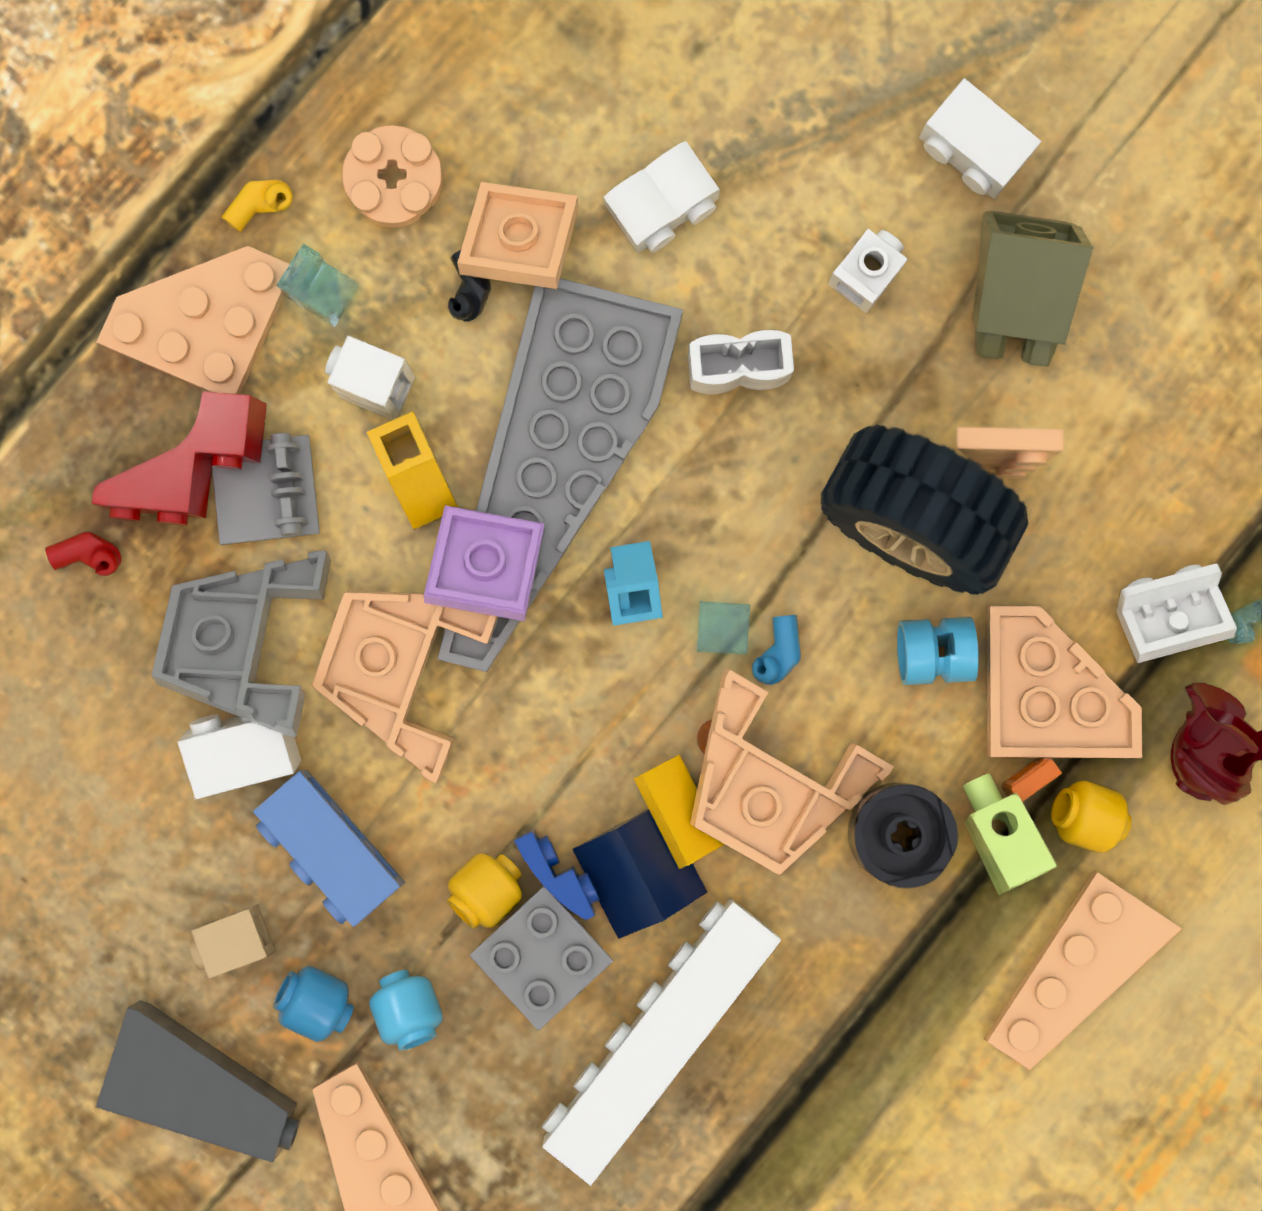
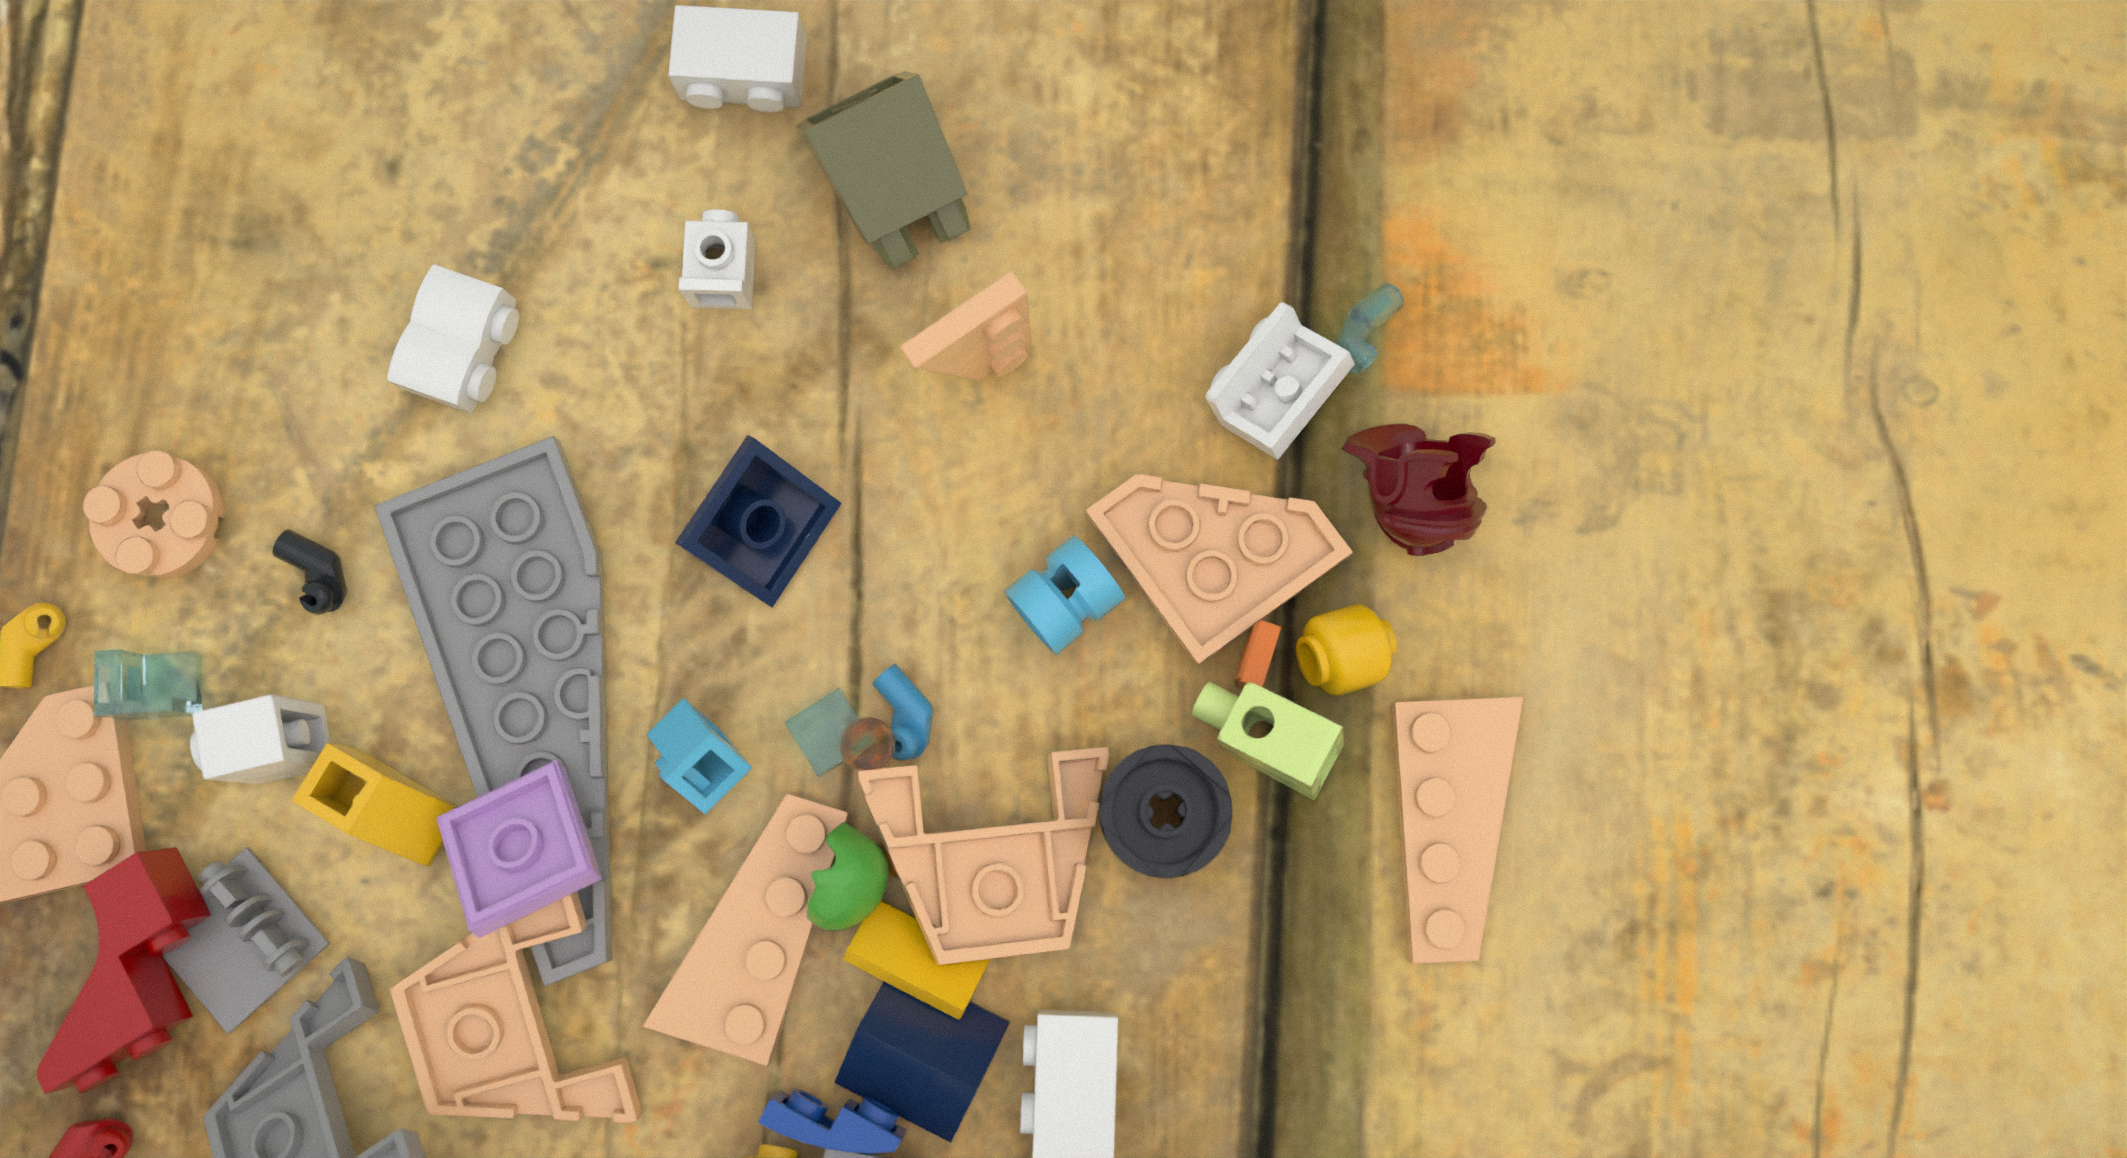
camera: 30 degrees left, 5 degrees down
(518, 235) = (325, 482): light nougat plate -> none
(578, 729) = (752, 949): none -> light nougat wing
(673, 736) = (852, 885): none -> bright green hair
(745, 665) = (873, 756): none -> clear orange hinge
(755, 362) = (636, 457): white brick -> none
(775, 462) = (758, 522): none -> dark blue slope
(925, 509) = (936, 456): black wheel -> none

